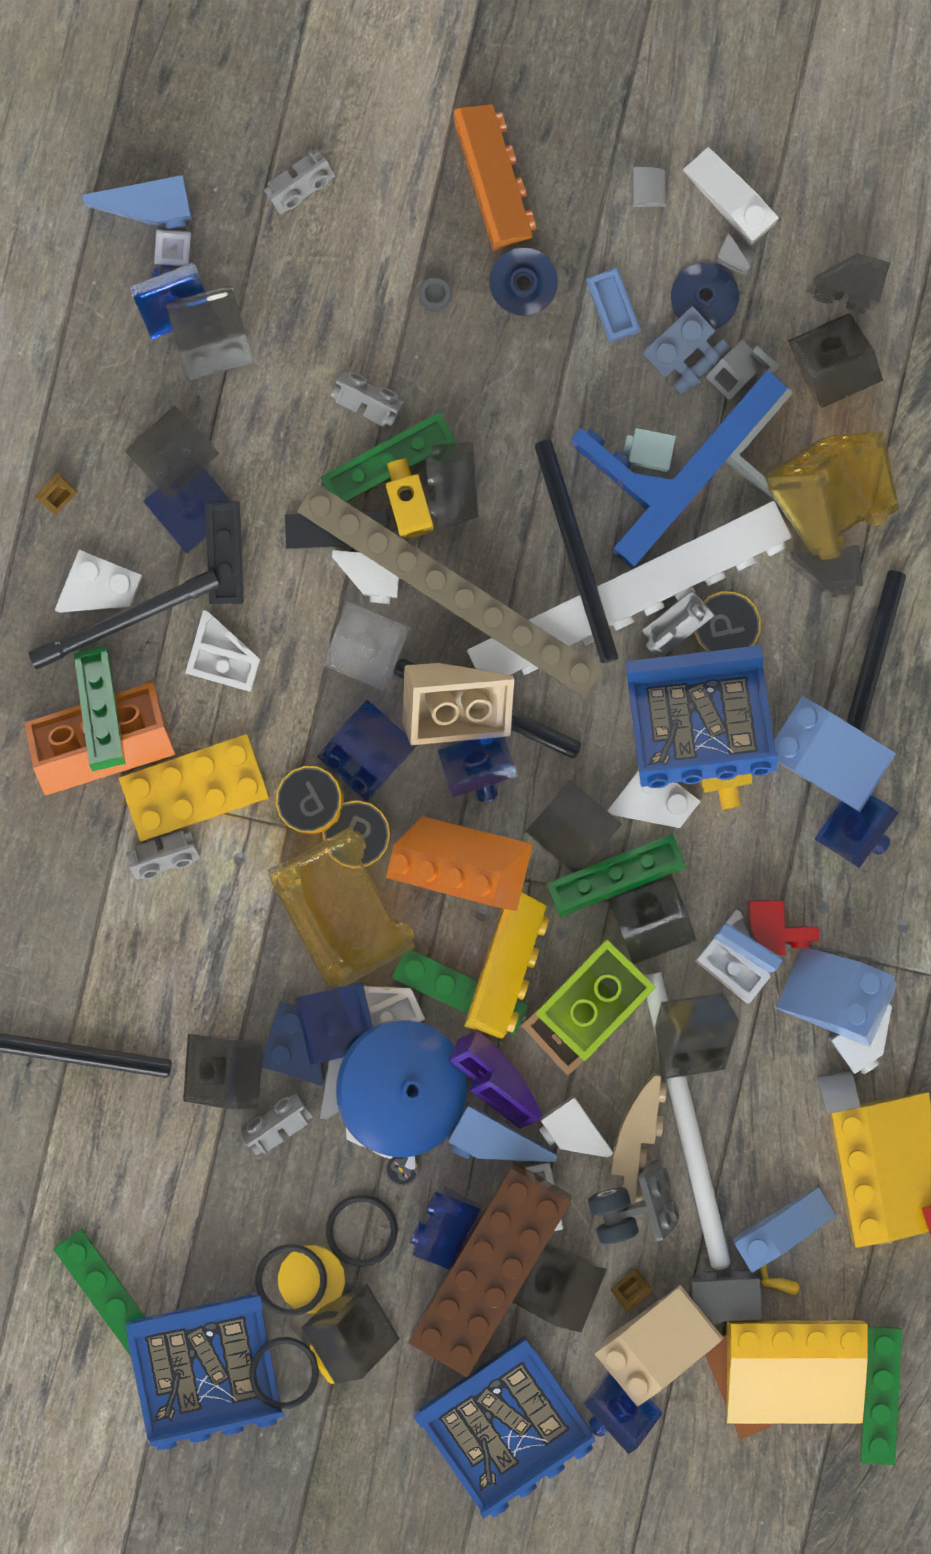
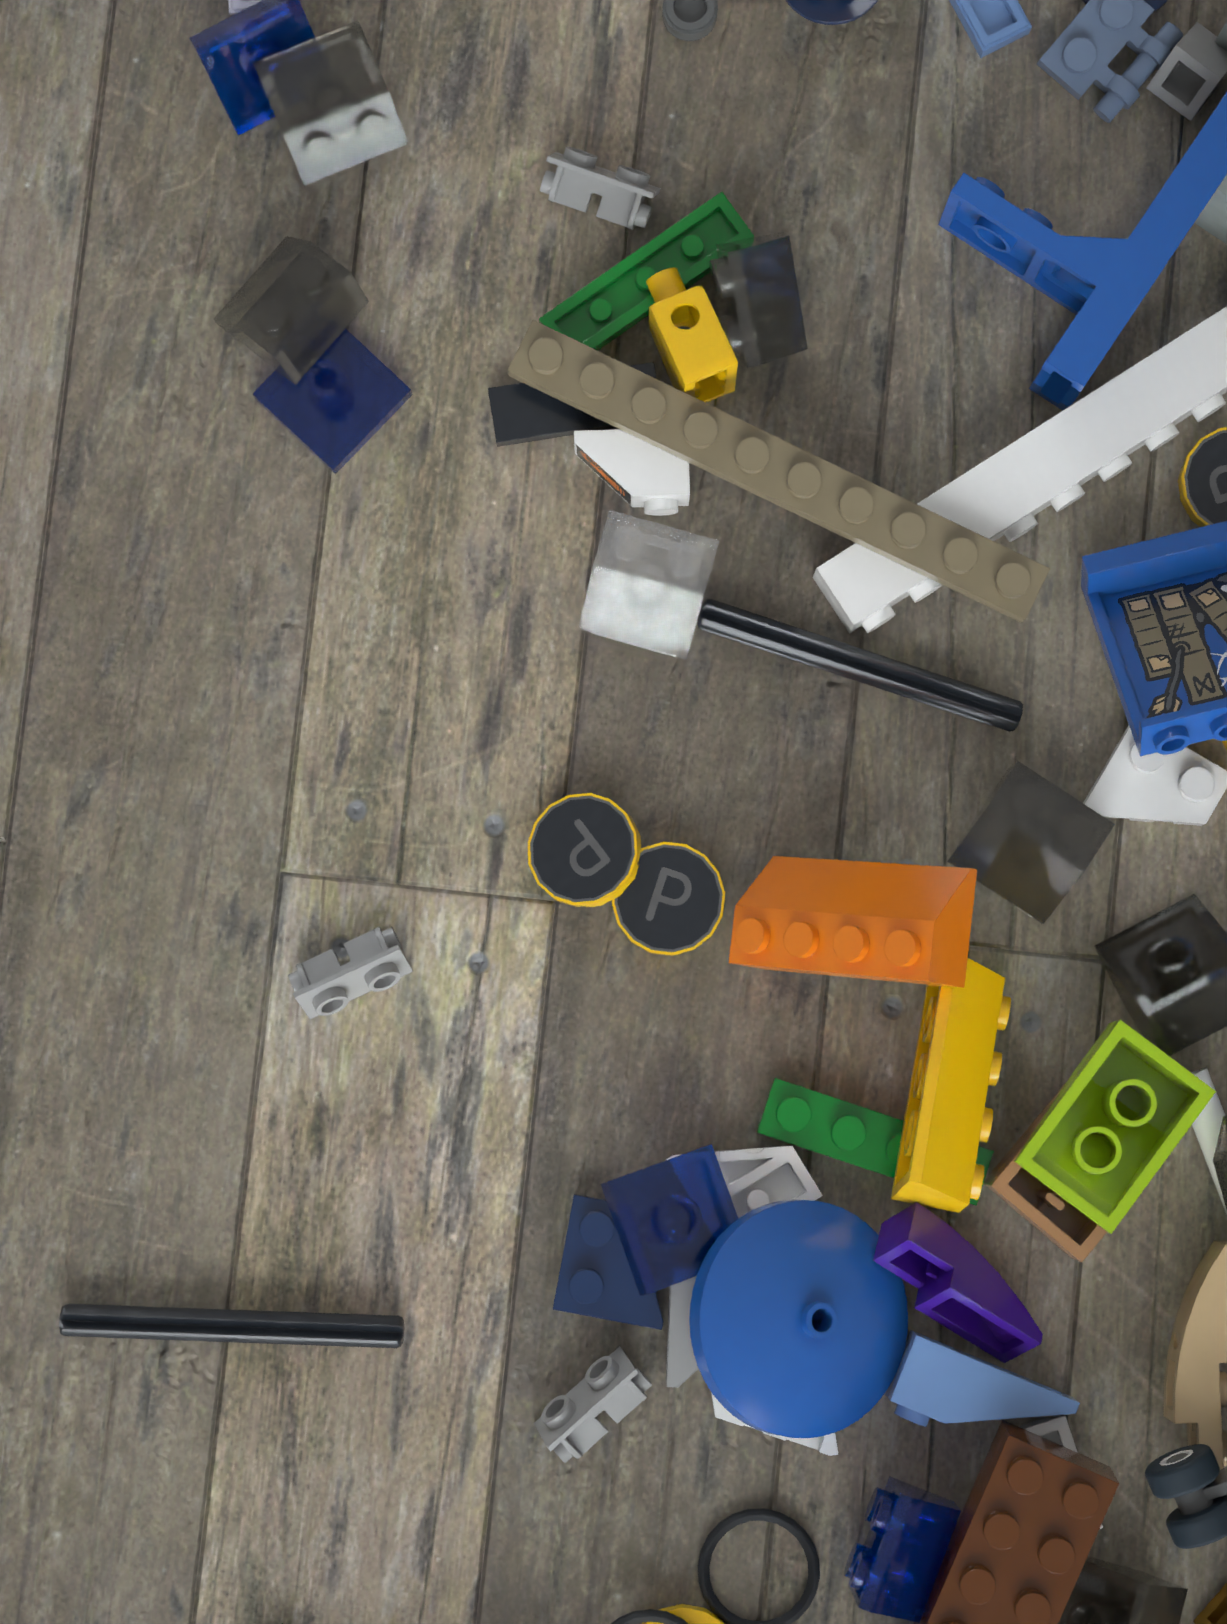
camera: 10 degrees left, 5 degrees down
(56, 493) = (108, 398): pearl gold slope -> none
(60, 747) = (220, 791): orange slope -> none
(61, 647) = (345, 525): black piece -> none
(97, 585) = (193, 540): white wing -> none
(99, 708) = (215, 737): plate -> none
(194, 787) = (388, 854): yellow plate -> none
(221, 656) = (410, 631): white wing -> none
(223, 1071) = (492, 1325): clear smoke slope -> none
(225, 550) = (396, 460): black tile -> none
(339, 909) = (656, 1027): clear yellow windscreen -> none
(366, 750) = (669, 756): clear blue slope -> none
(398, 1173) = (809, 1464): tile -> none
(455, 703) = (809, 658): tan slope -> none
(477, 766) = (859, 758): clear blue tile -> none
(573, 1130) = (1098, 1353): white slope -> none
(576, 551) = (978, 388): black axle -> none
(616, 875) = (1111, 915): green plate -> none
(649, 449) = (1077, 205): light aqua brick -> none
(677, 623) = (1157, 486): light grey hinge -> none

